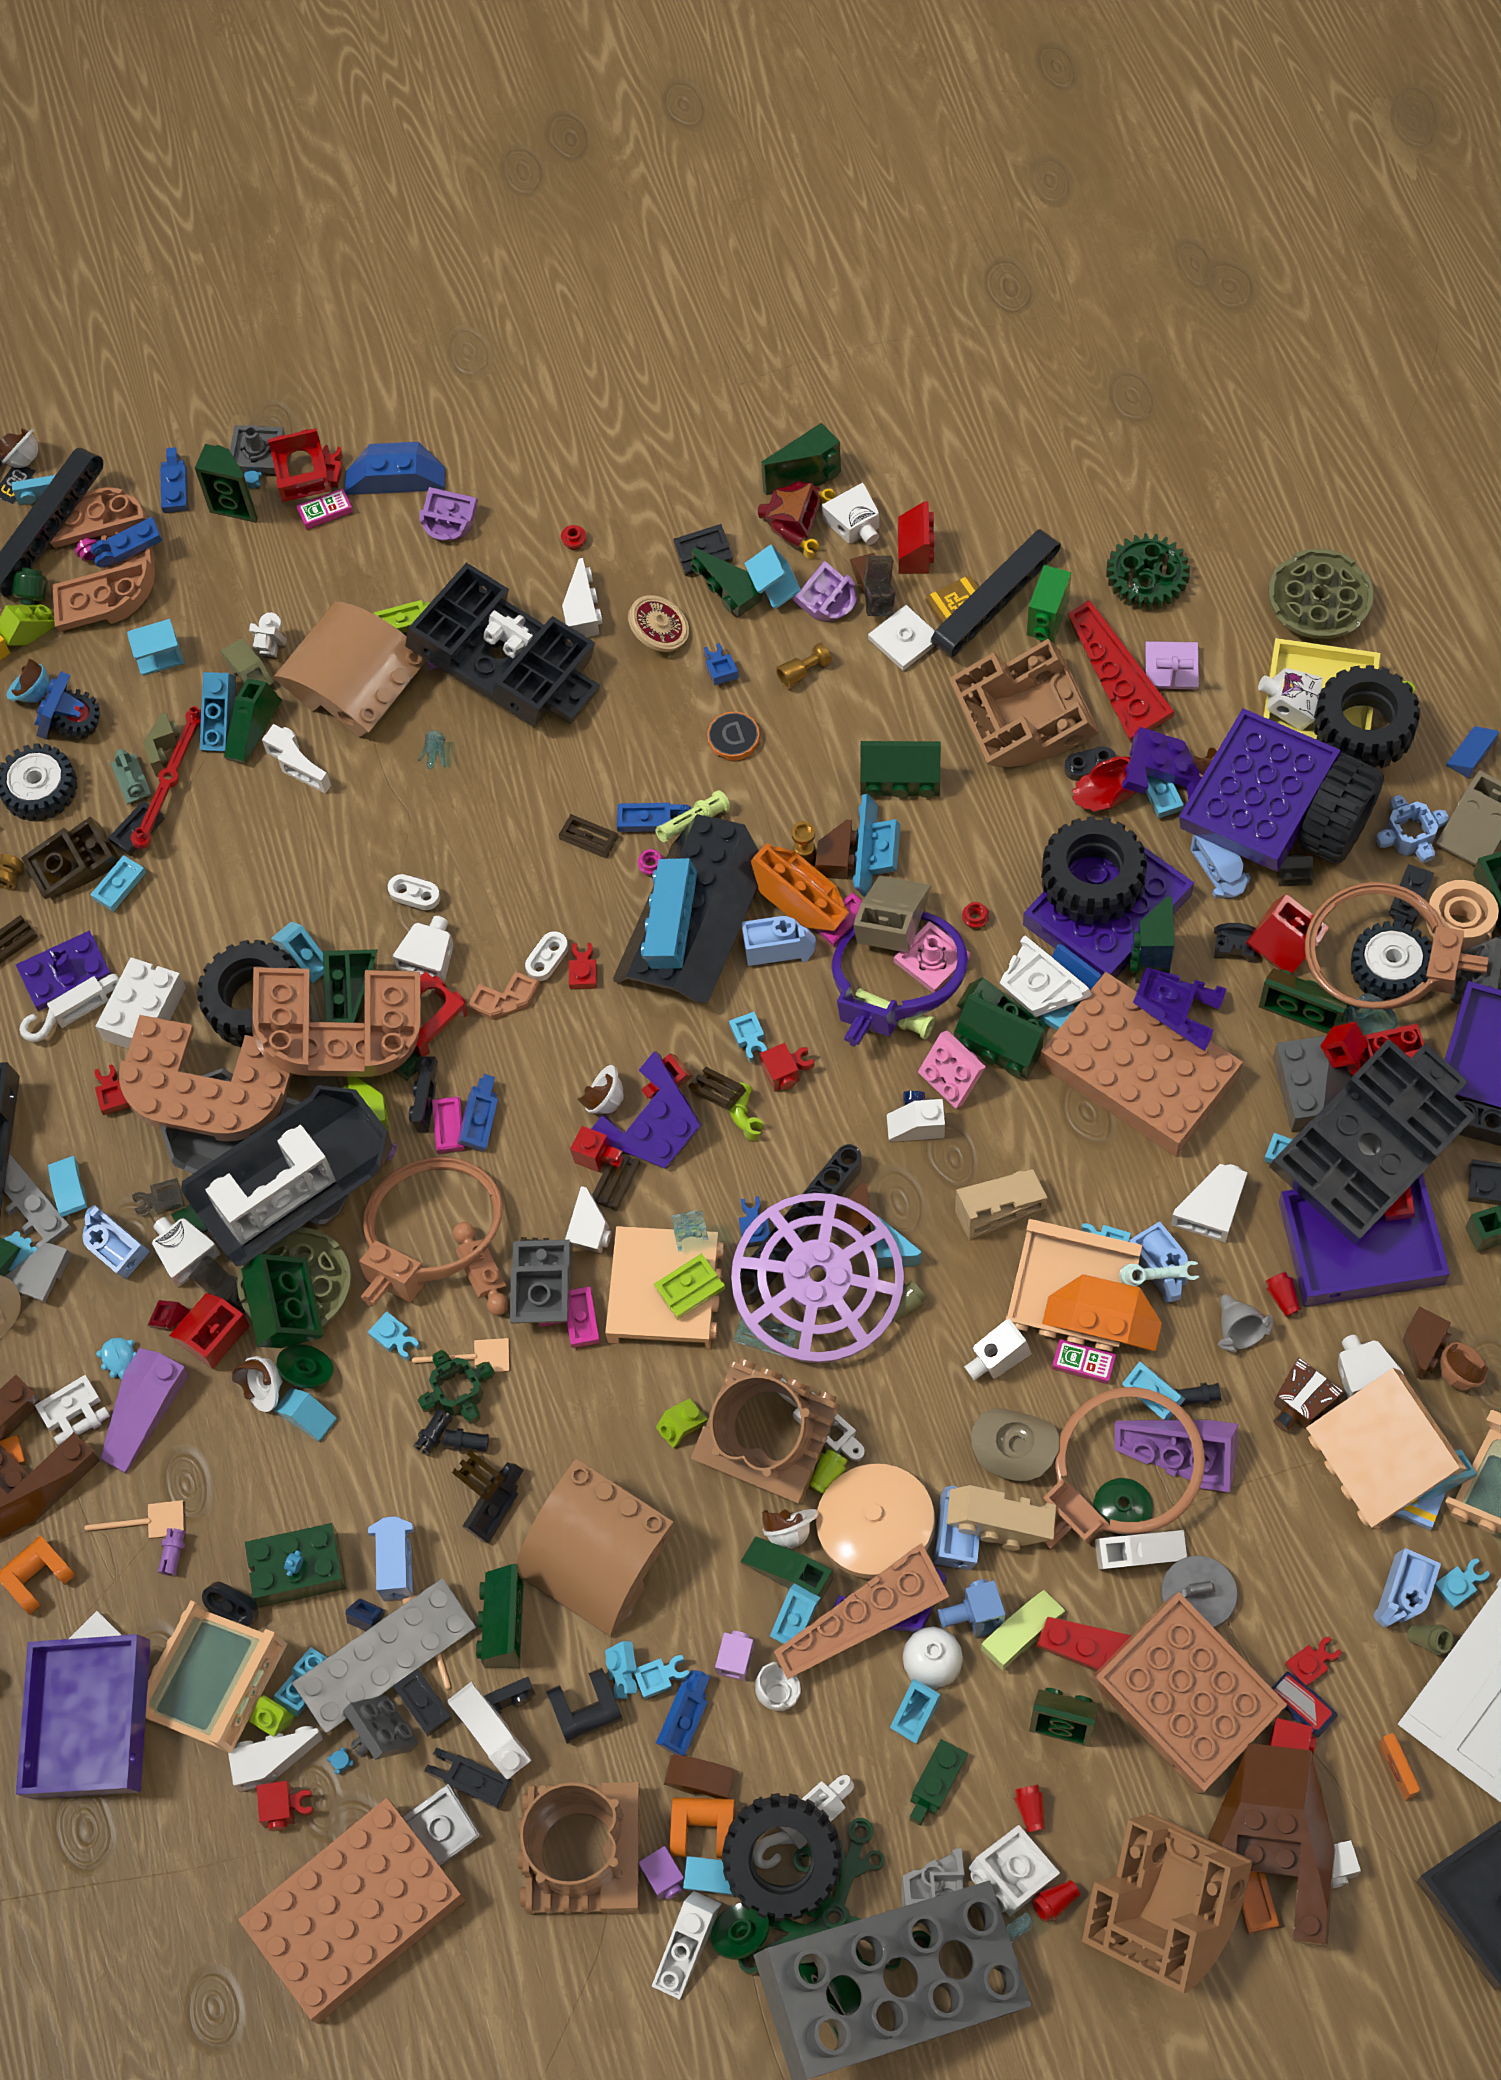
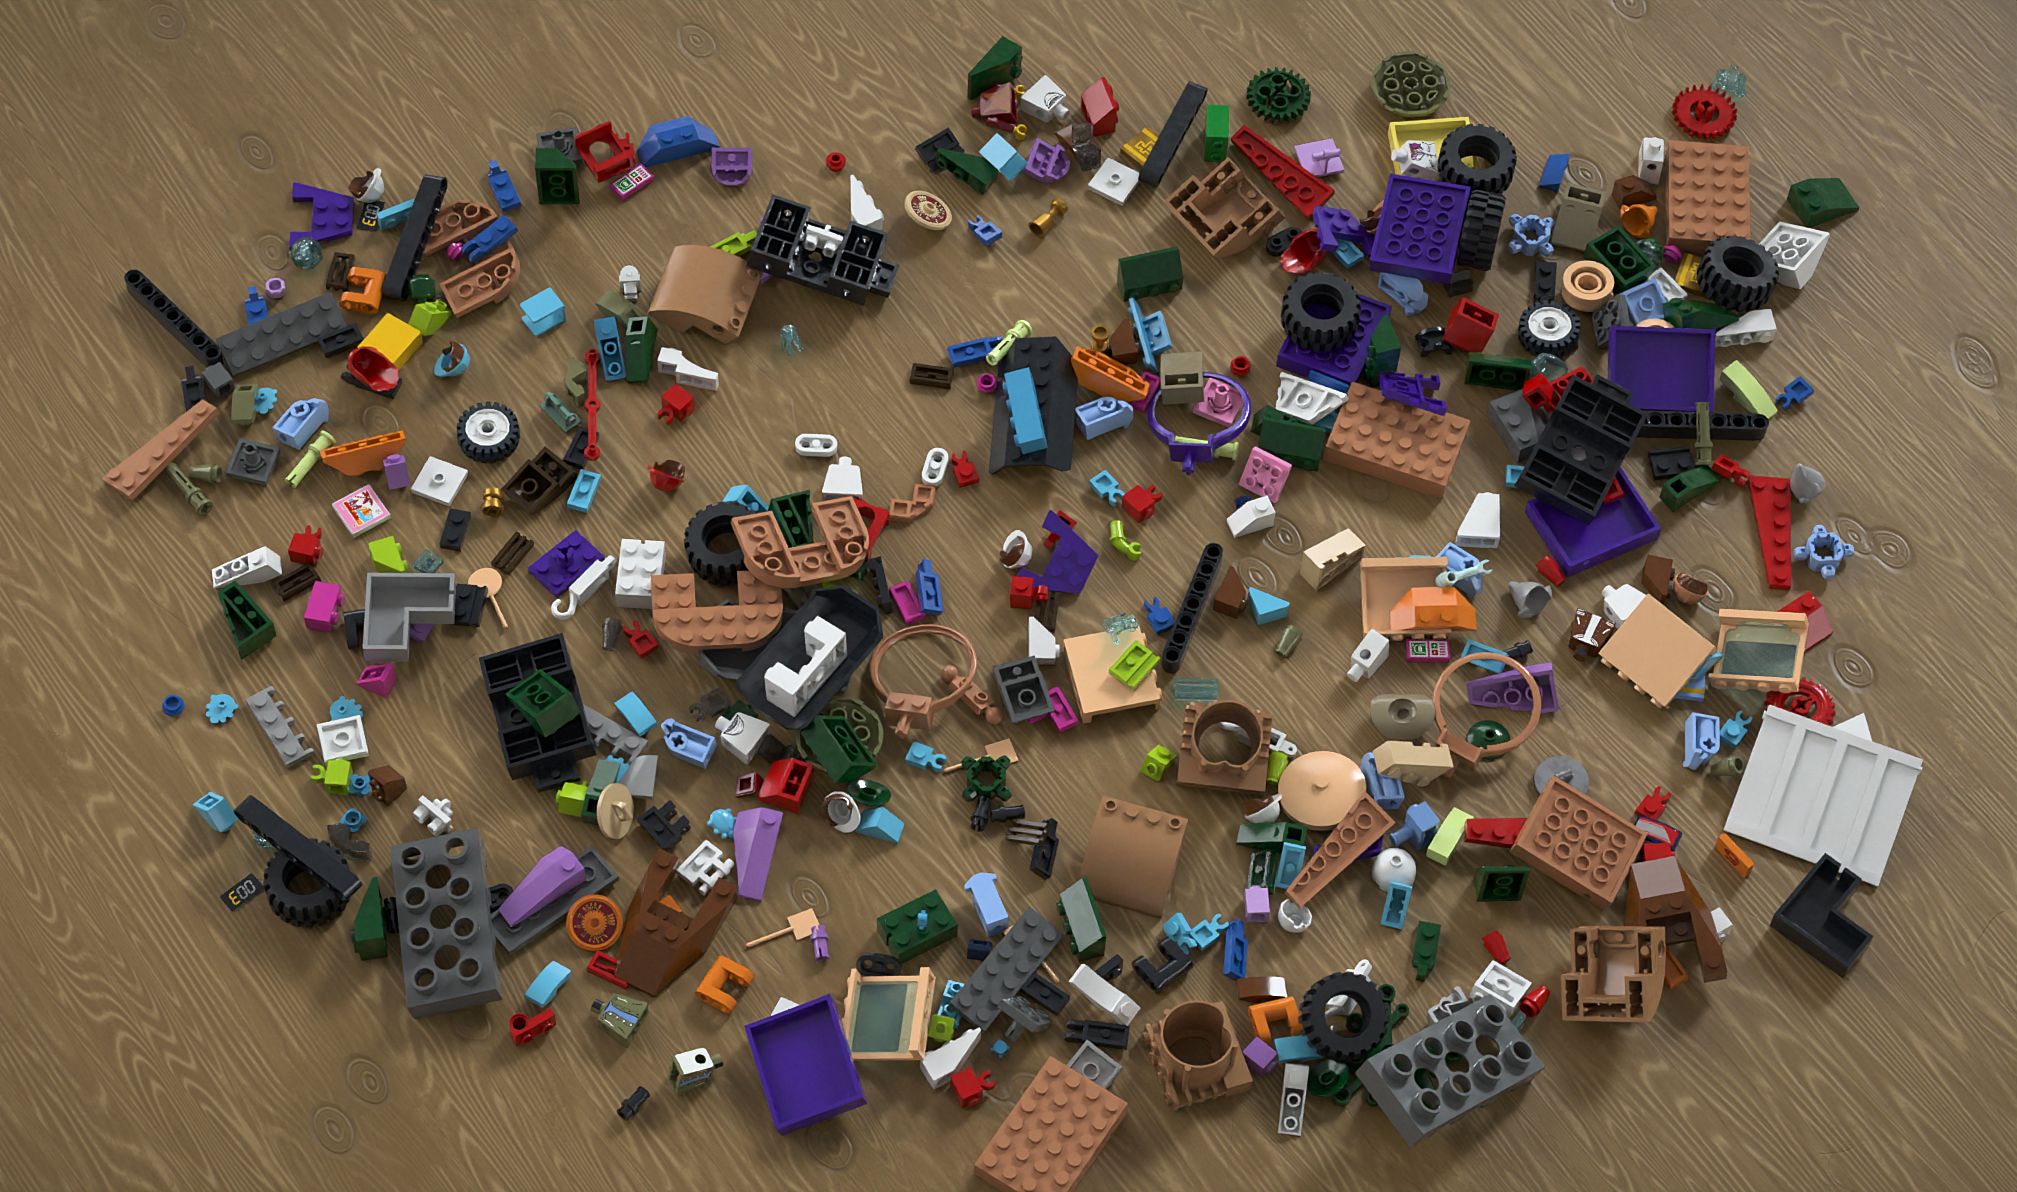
camera: 25 degrees left, 5 degrees down
(38, 1344) = (659, 828): none -> black plate
(66, 710) = (492, 373): plate -> none
(79, 1073) = (610, 633): none -> clear smoke cone
(219, 888) = (667, 475): none -> piece
(268, 799) = (676, 404): none -> red brick
(721, 1079) = (1100, 526): dark brown tile -> none
(733, 736) = (1013, 280): black tile -> none
(761, 1610) = (1263, 870): none -> clear green slope
(814, 1294) = (1221, 647): lavender dish -> none
(1140, 1549) = (1510, 762): white slope -> none
(1445, 955) = (1589, 314): nougat brick -> none

